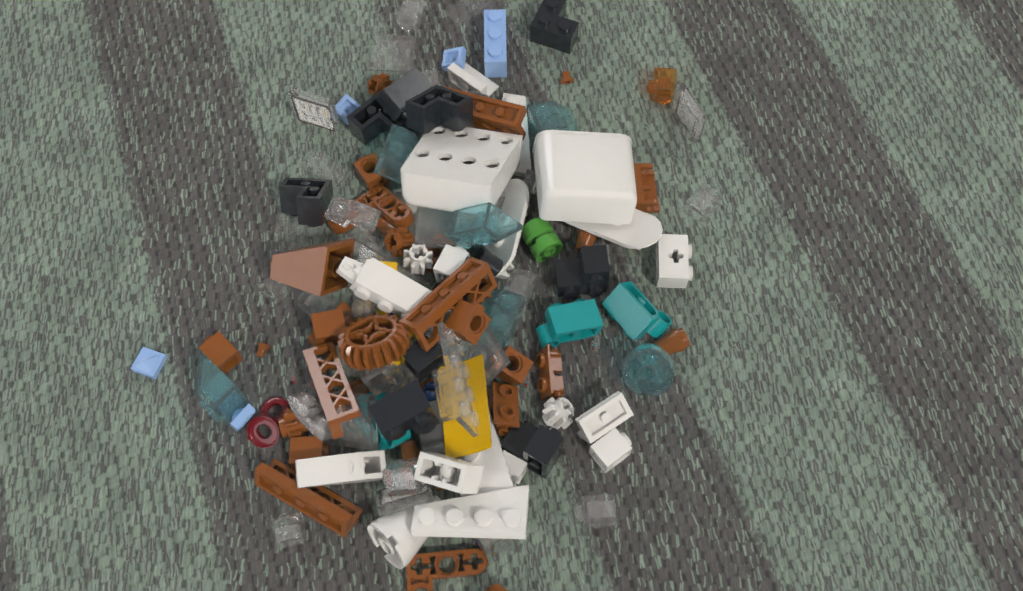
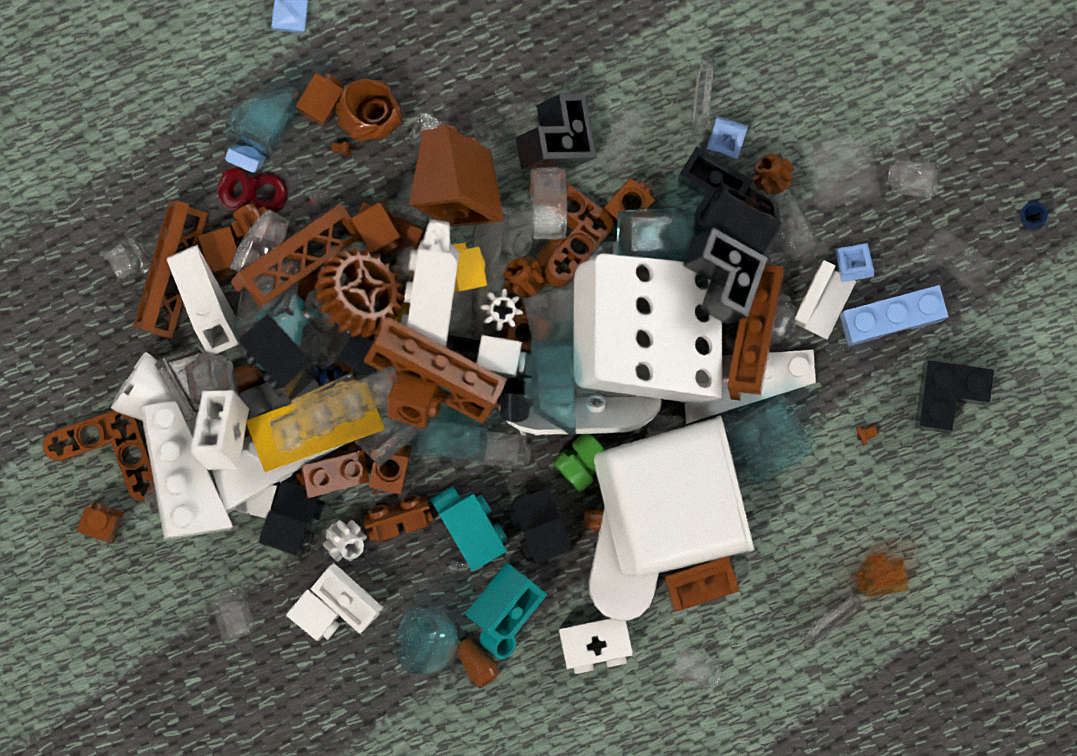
camera: 70 degrees right, 20 degrees up
(241, 320) = (368, 110): none -> dark orange hair

